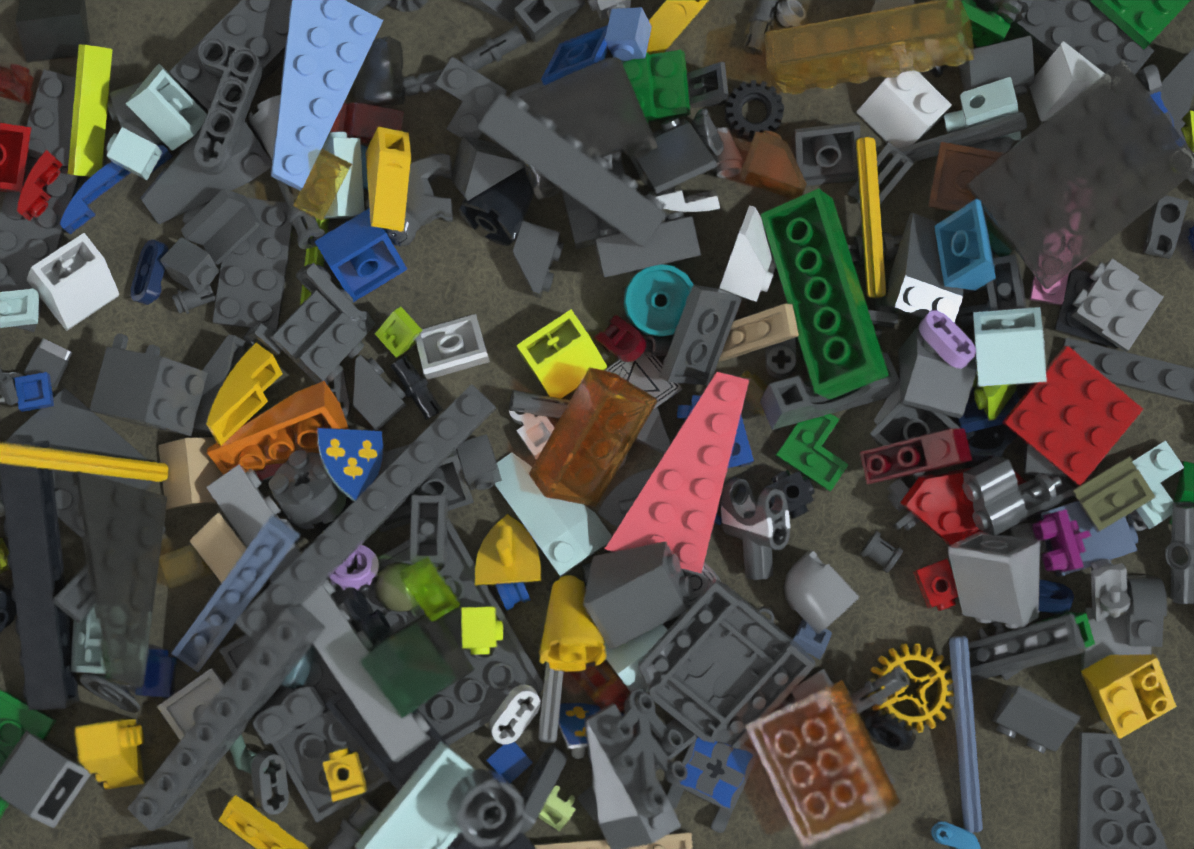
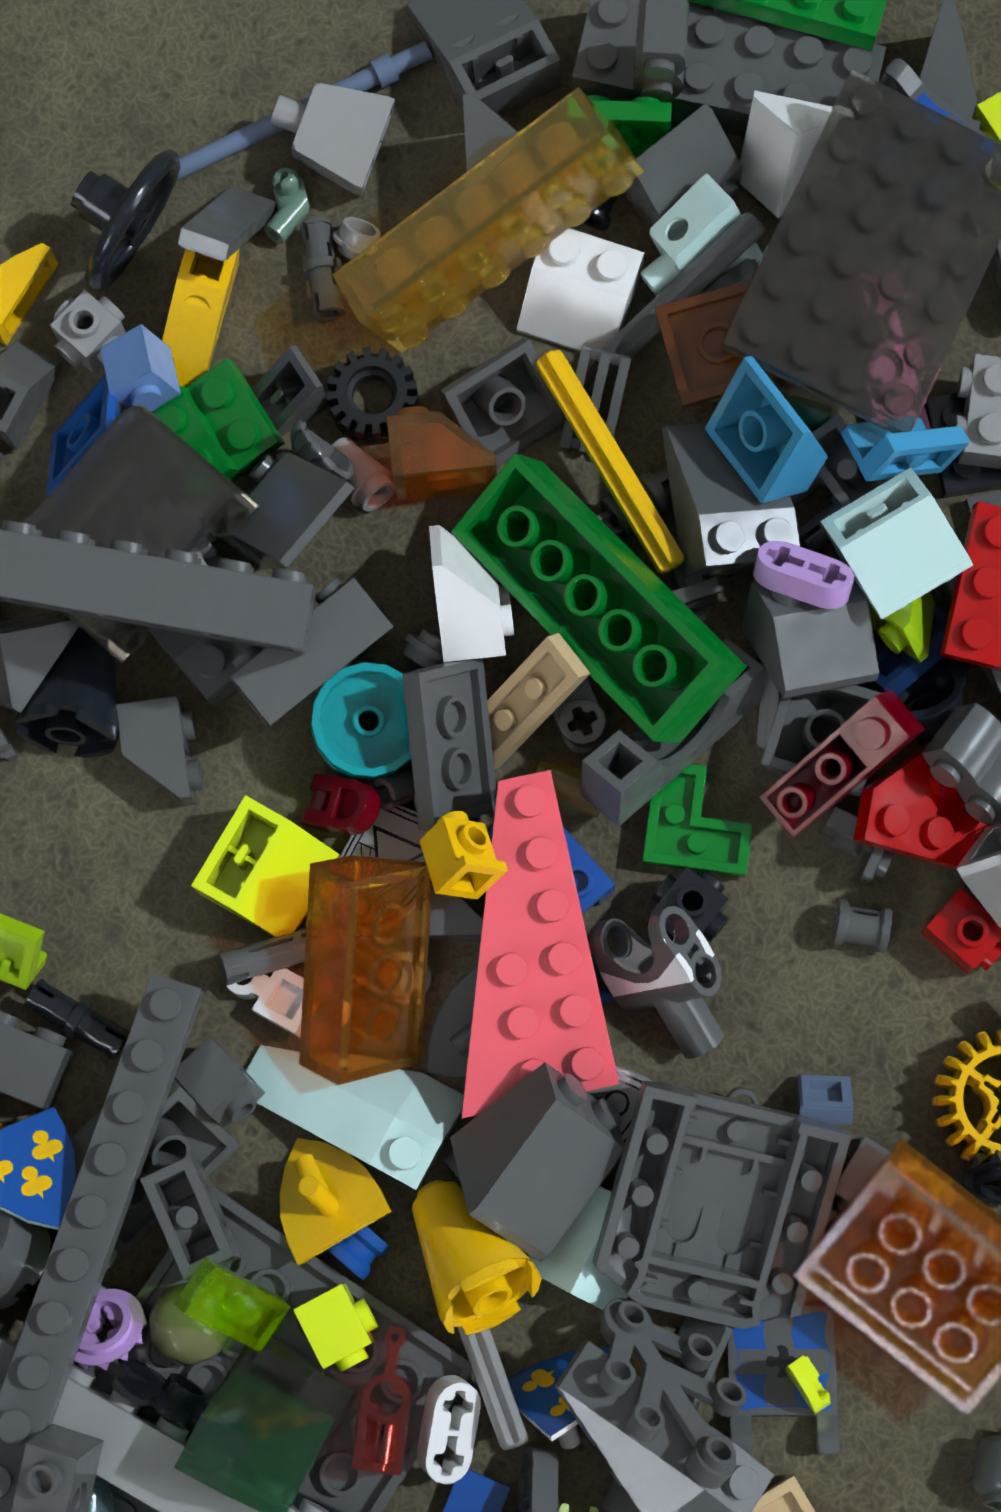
camera: 20 degrees left, 5 degrees down
(451, 347) = (100, 936): white slope -> none
(476, 687) = (372, 1417): none -> clear red piece
(602, 685) = (556, 1321): clear red slope -> none
(675, 201) = (320, 569): white slope -> none
(675, 404) = (461, 857): none -> yellow brick
(712, 273) = (424, 649): none -> light grey plate
(723, 785) = (806, 1381): none -> neon yellow tile
(817, 591) = (800, 1028): light grey brick -> none
(892, 681) = (975, 1104): dark grey pin -> none
(1030, 293) = (888, 454): none -> dark azure panel

